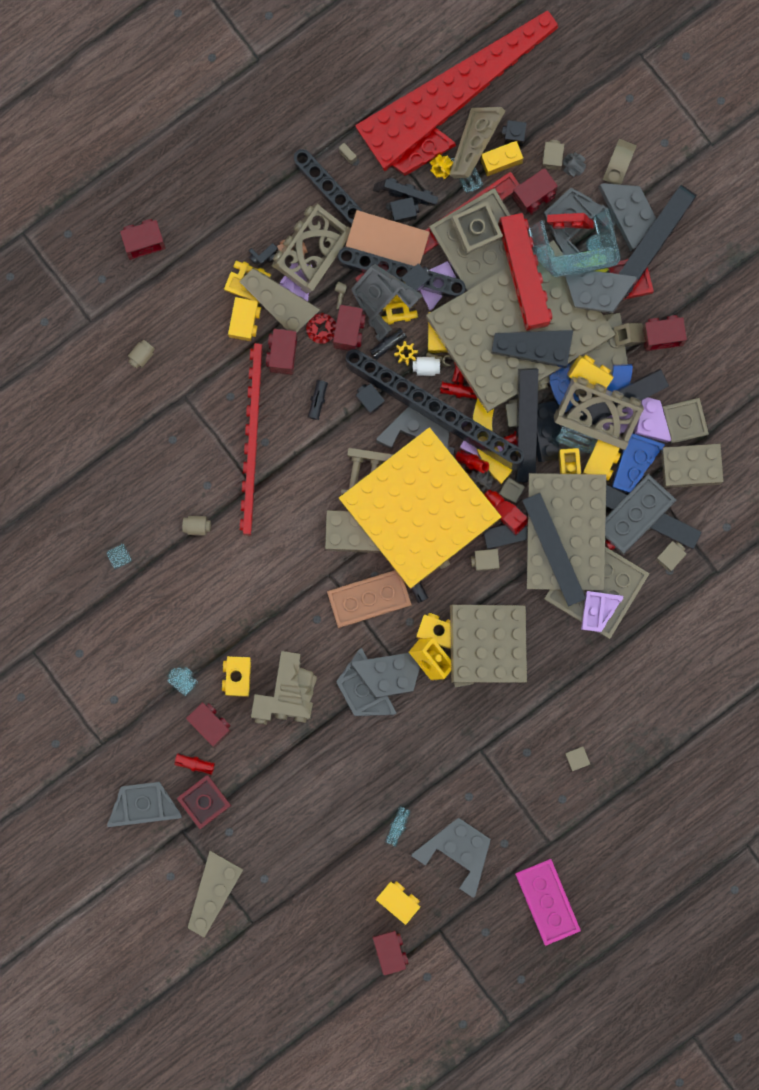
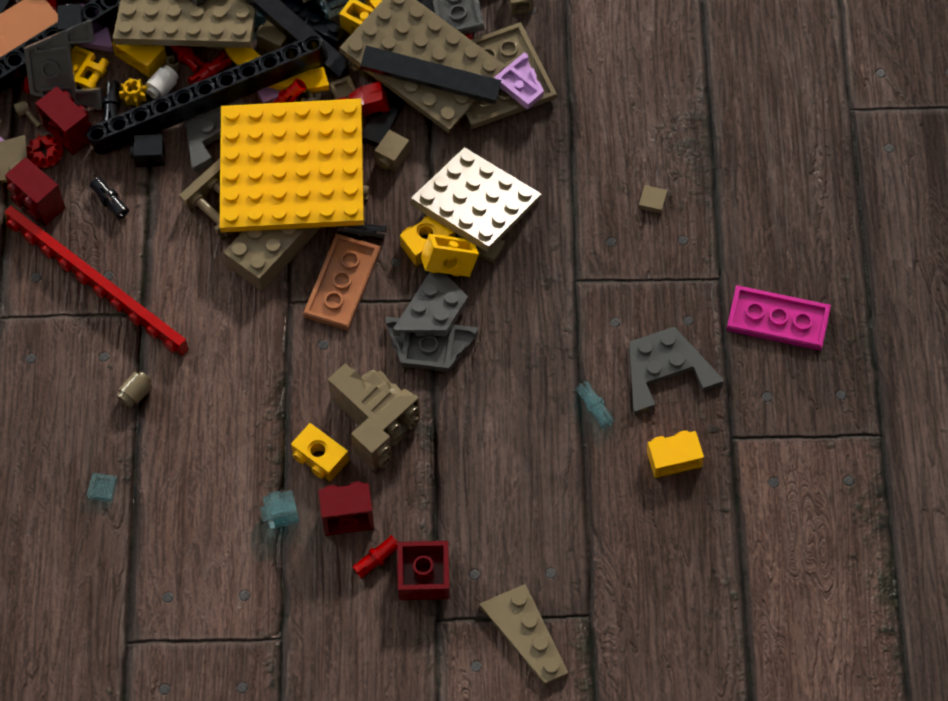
camera: 50 degrees left, 20 degrees down
(142, 804) = (378, 638): dark grey wing -> none
(389, 952) = (722, 491): dark red brick -> none

